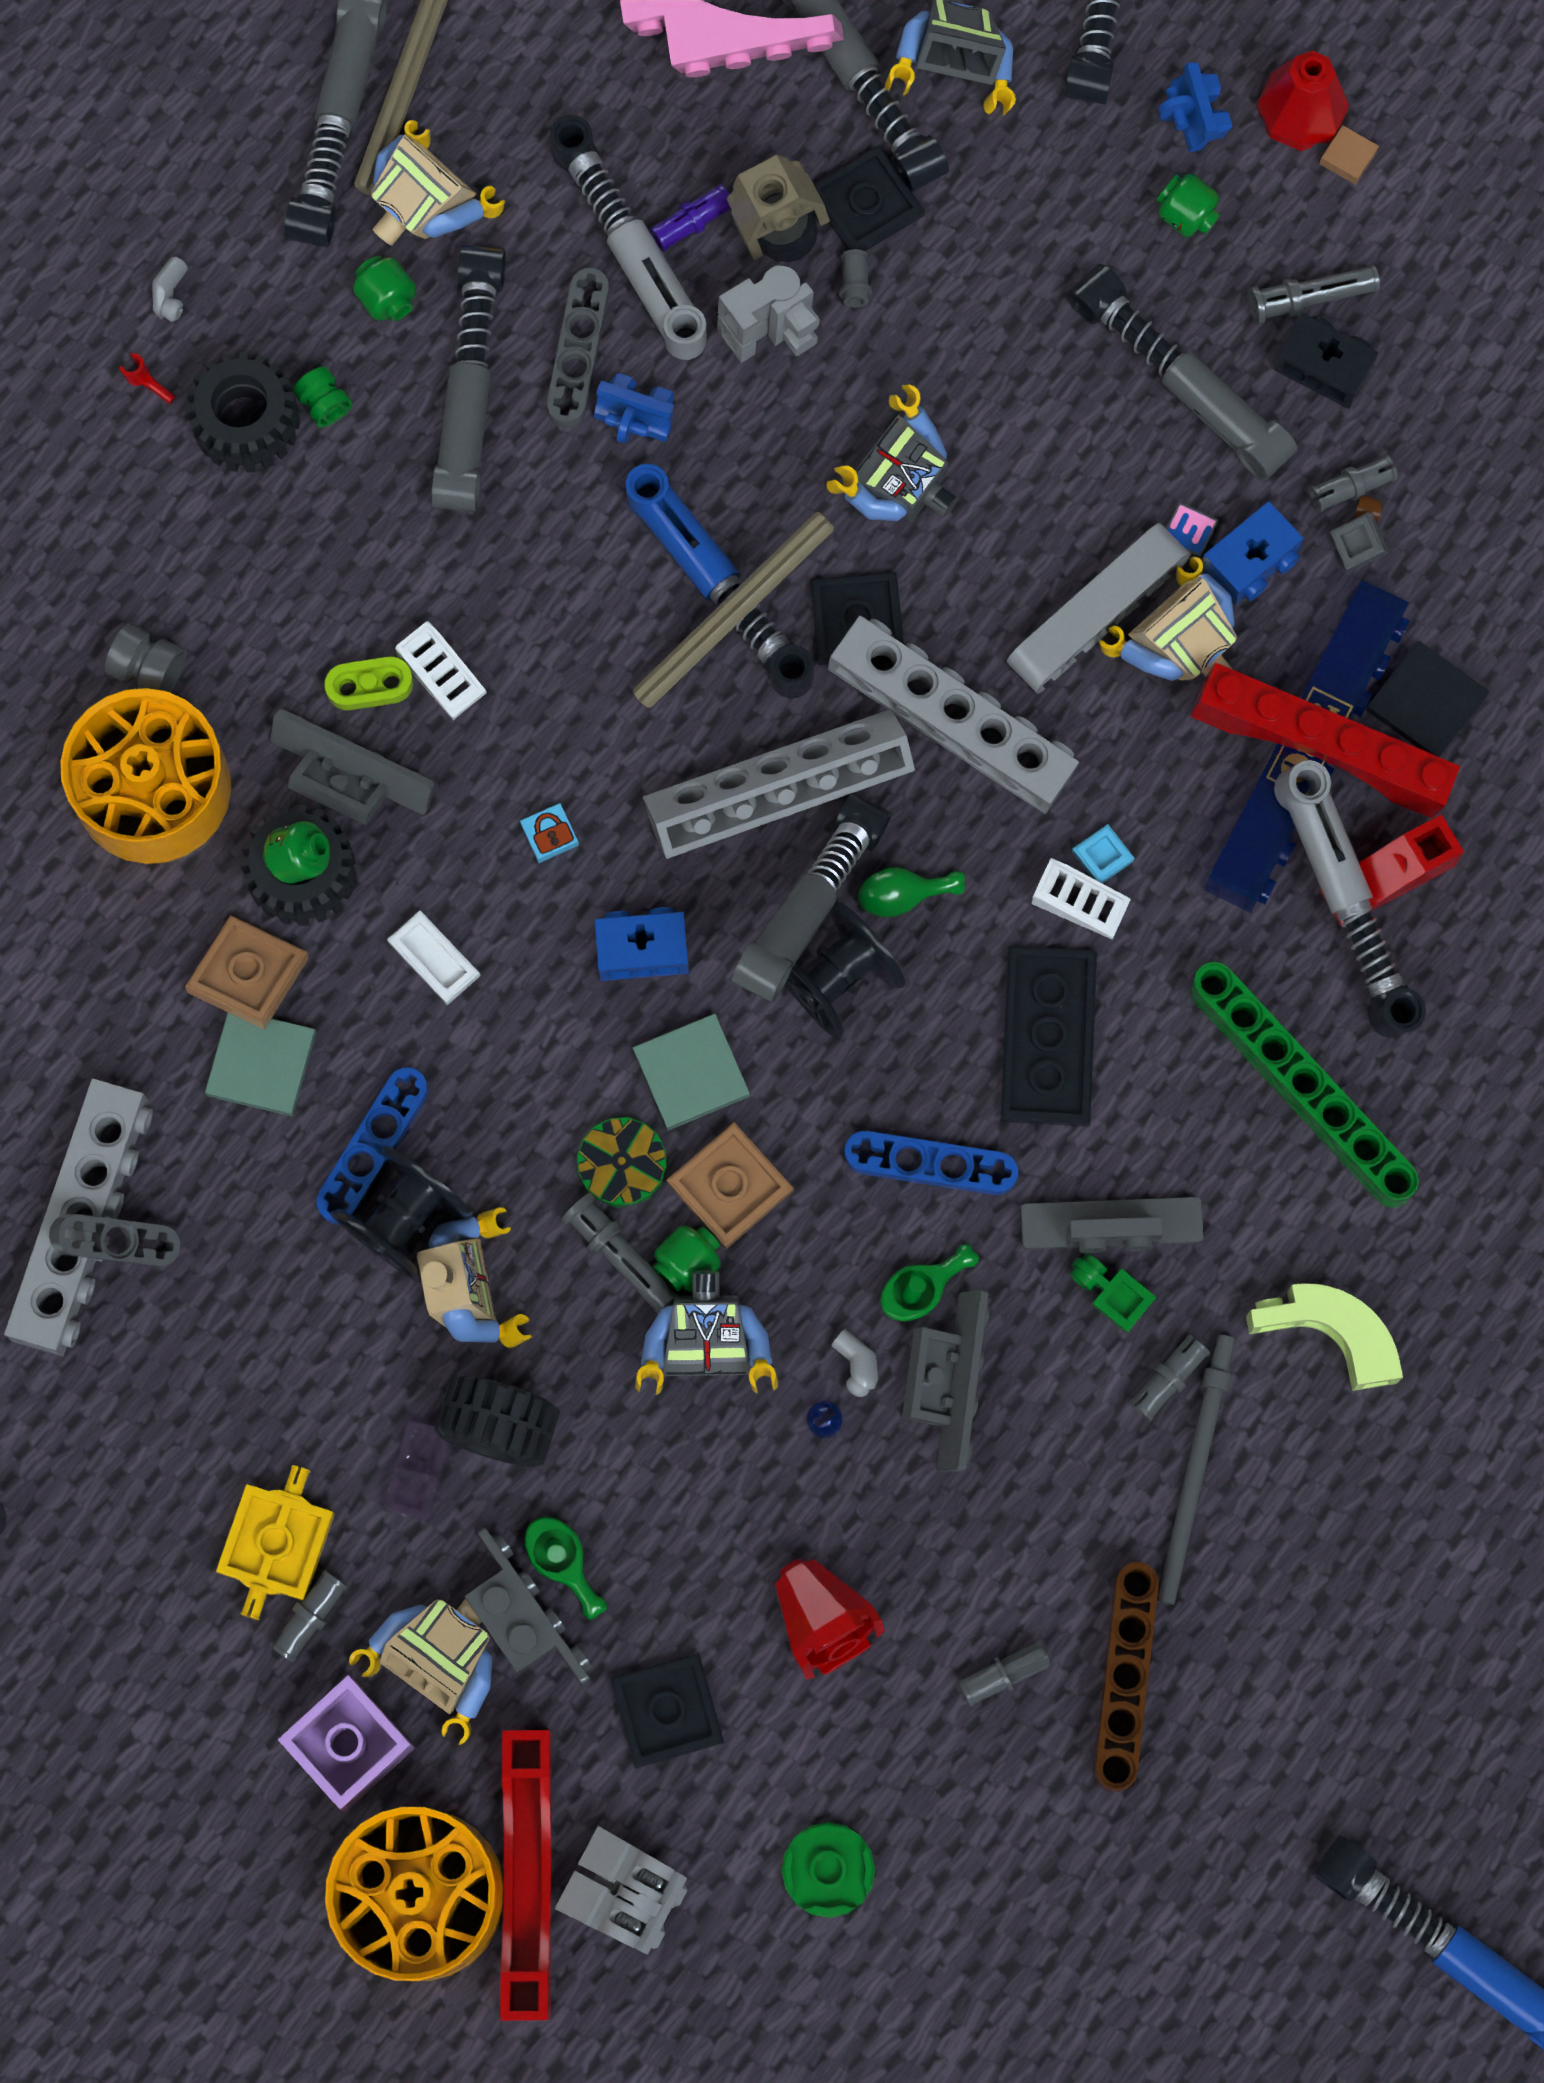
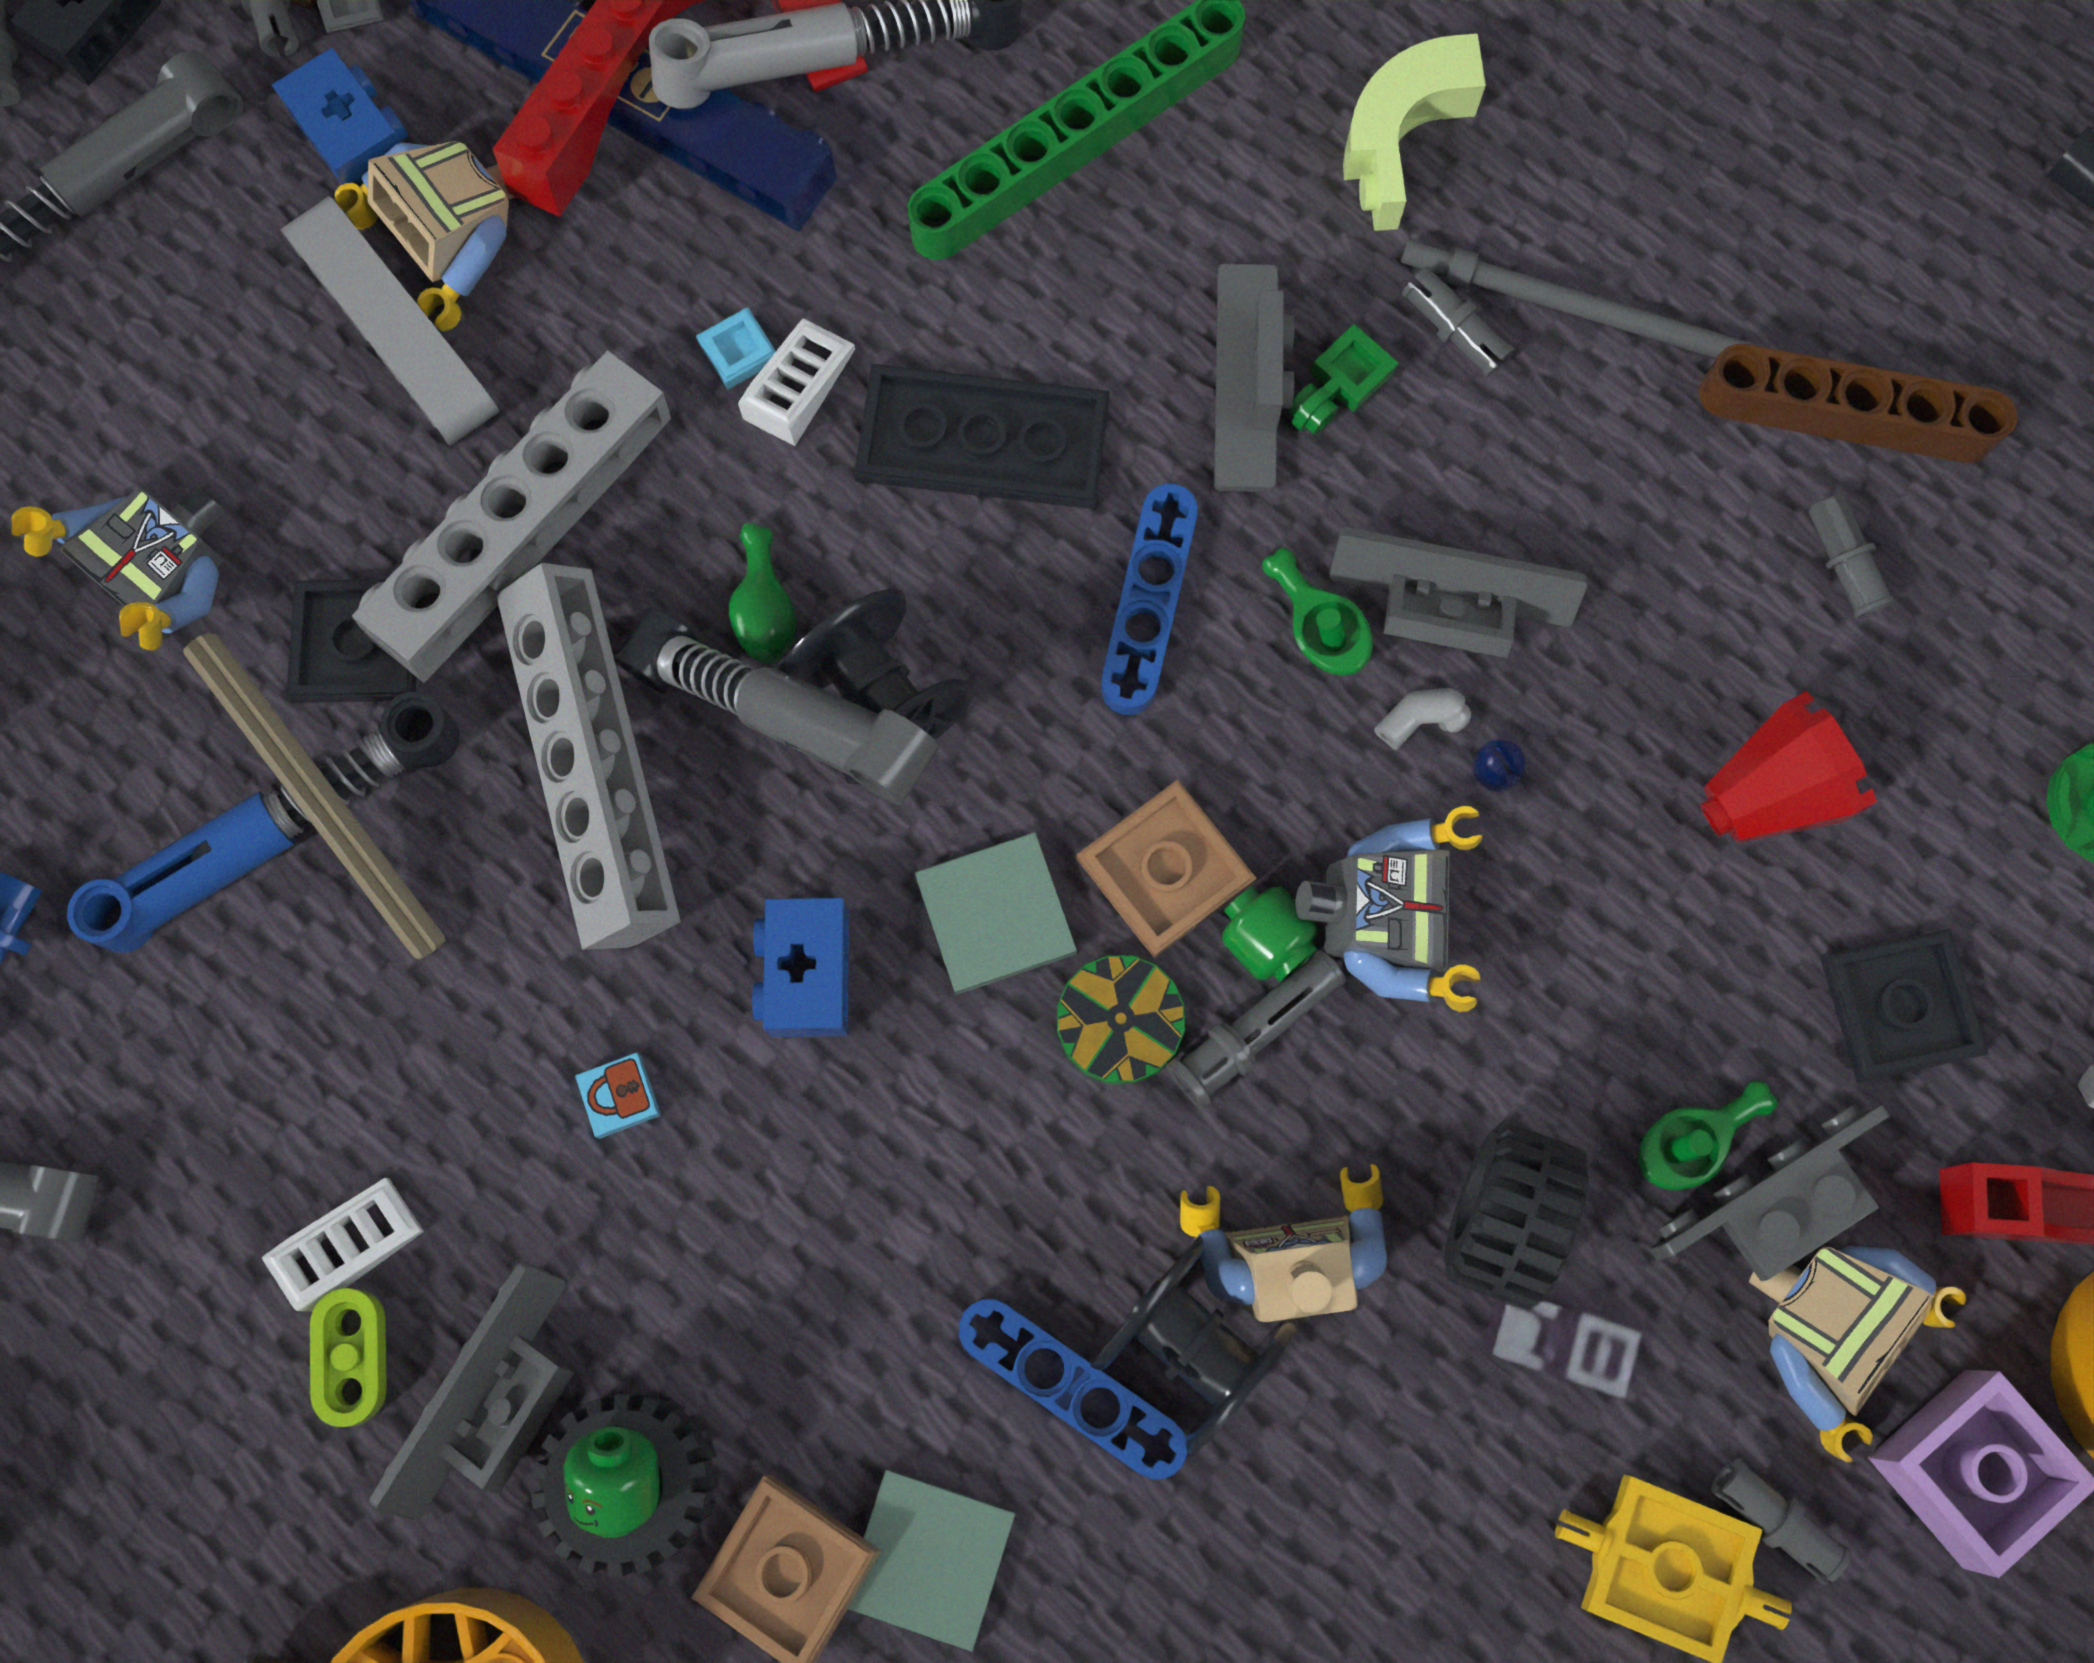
camera: 85 degrees left, 0 degrees up
(433, 957) = (789, 1280): white tile -> none
(1192, 528) = (291, 197): tile -> none

